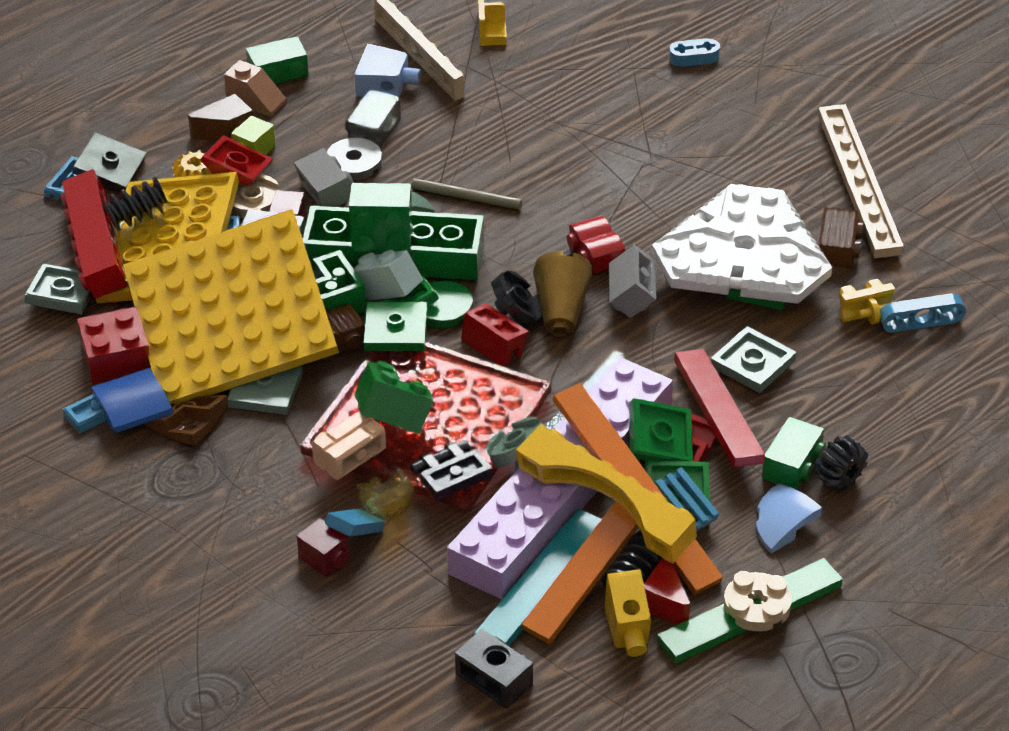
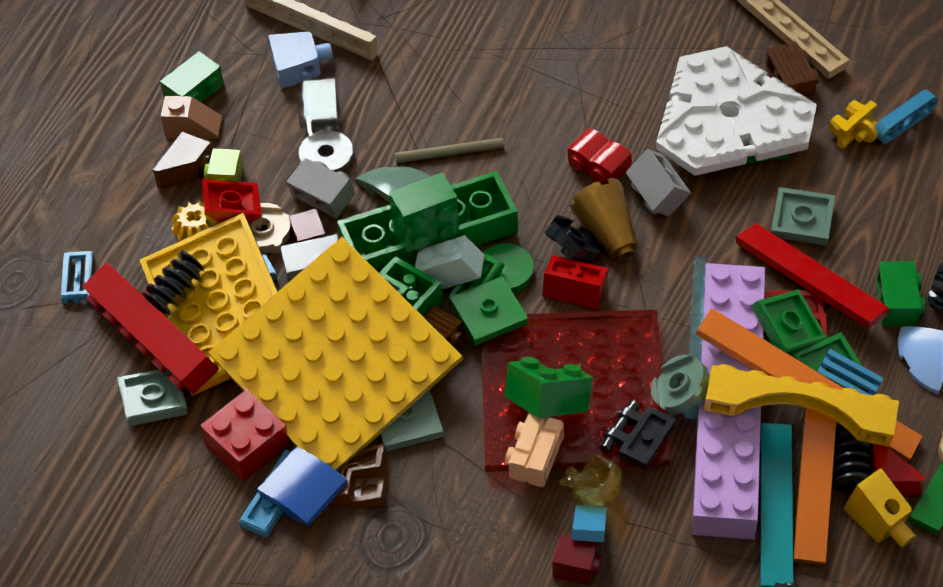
camera: 25 degrees left, 10 degrees up
(111, 161) = (106, 243): plate -> none

